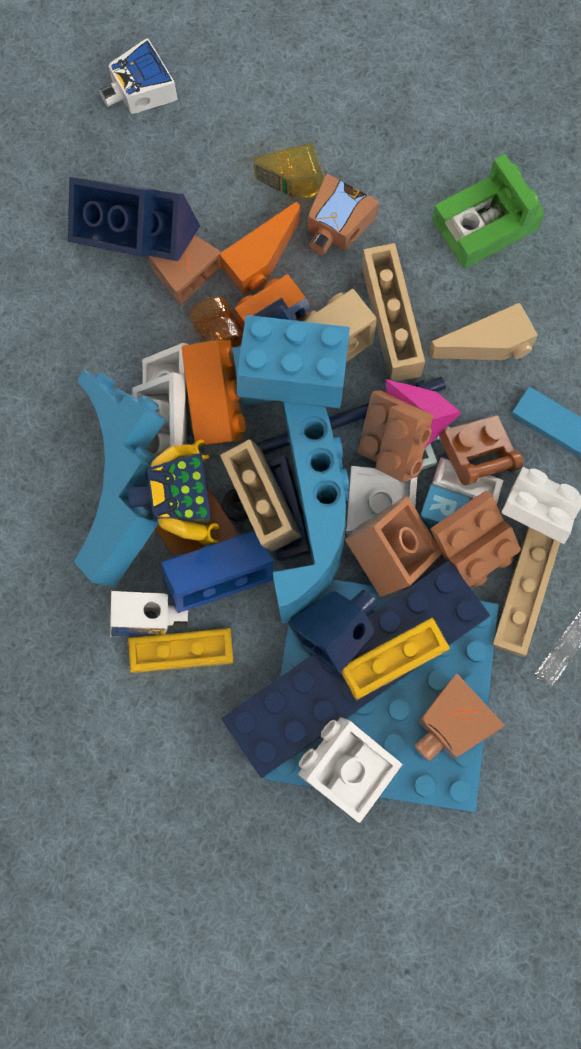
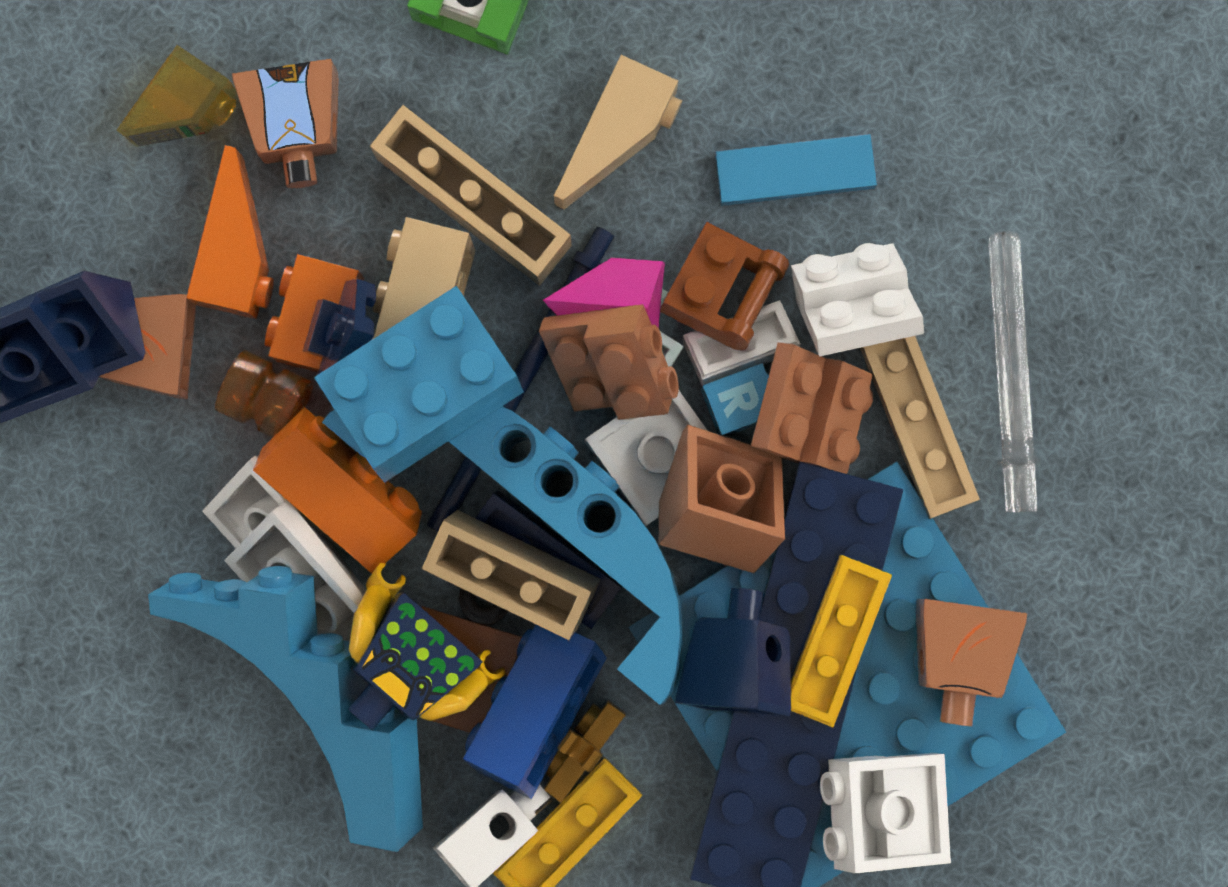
camera: 45 degrees left, 10 degrees up
(222, 612) = (581, 752): none -> pearl gold plate

